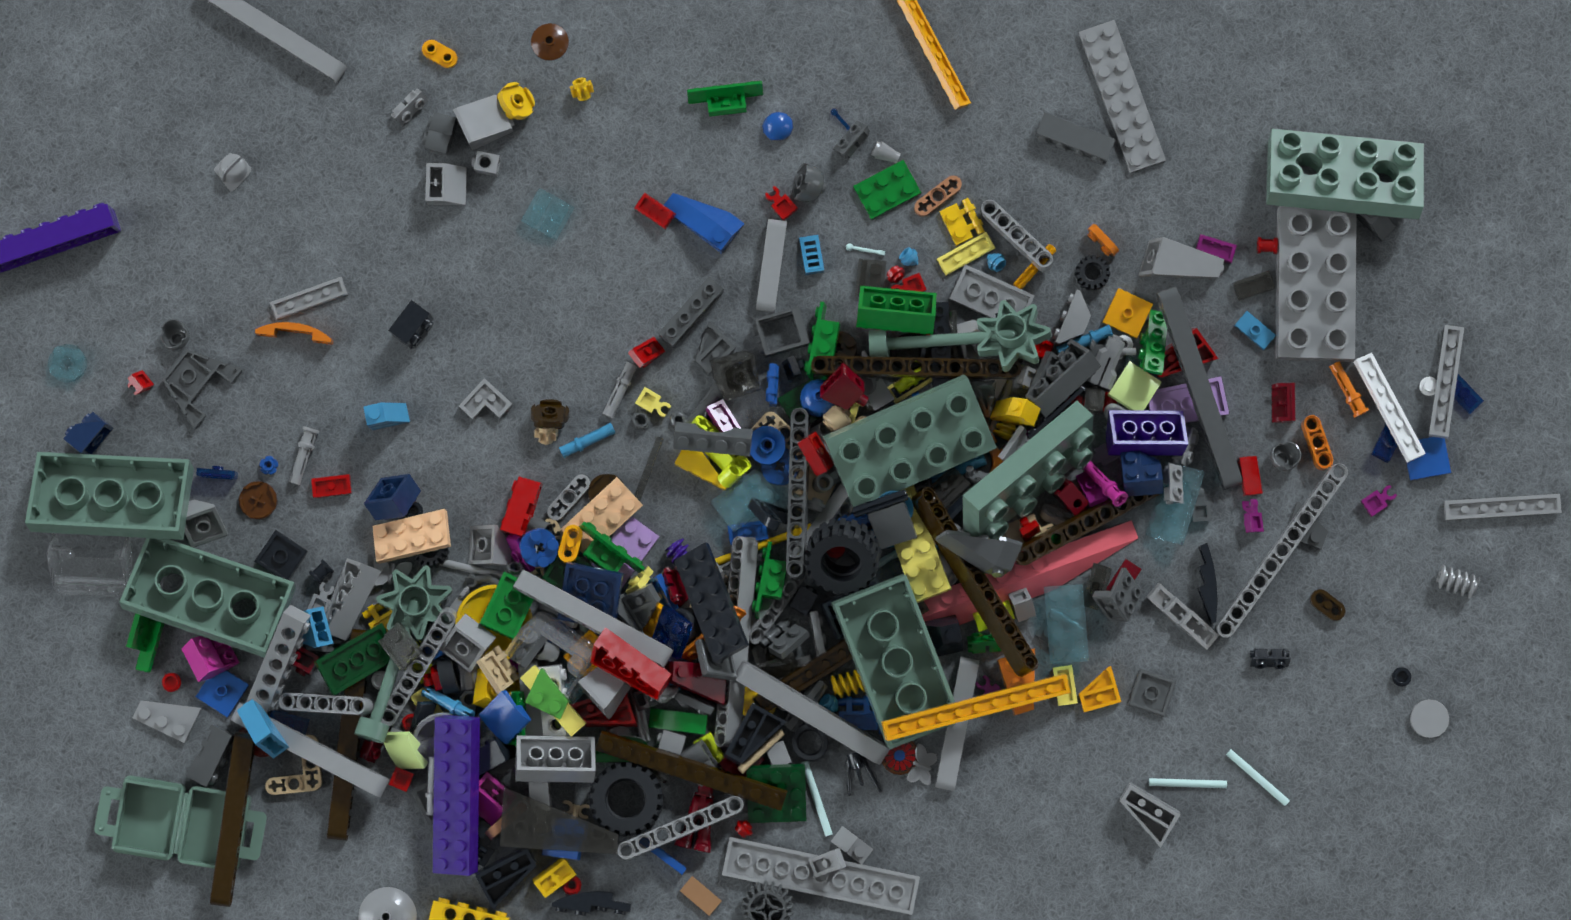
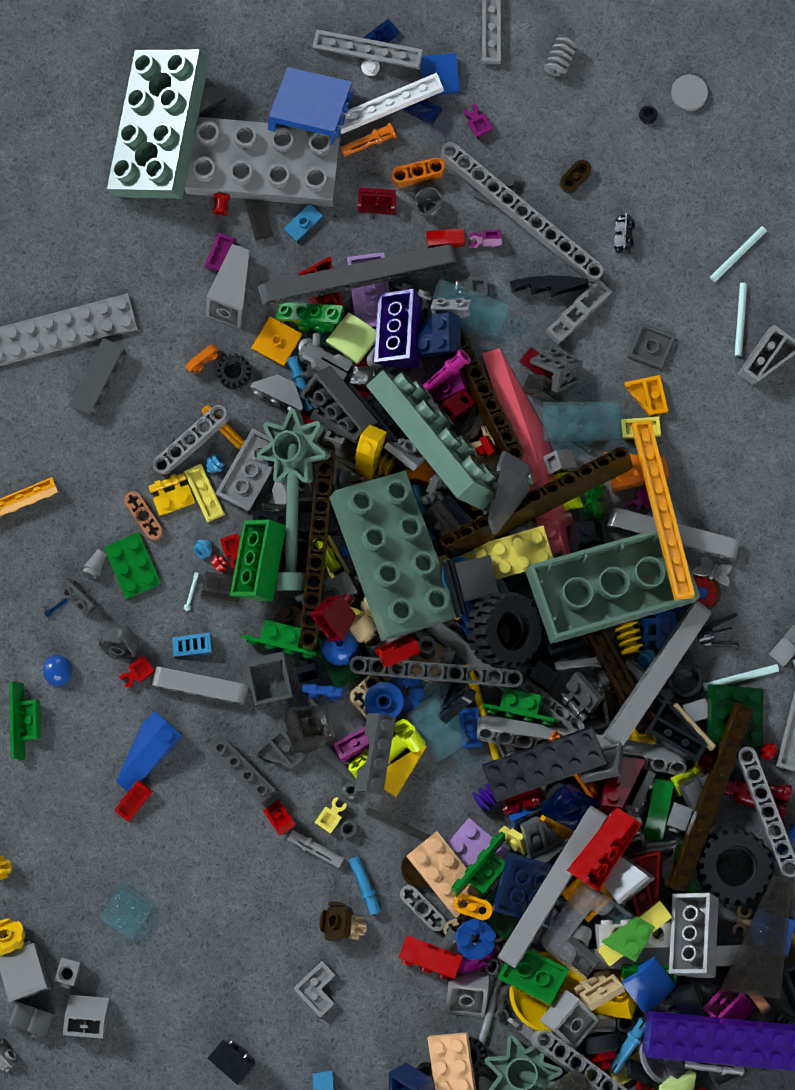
camera: 85 degrees left, 5 degrees down
(1379, 327) = (311, 103): none -> blue panel

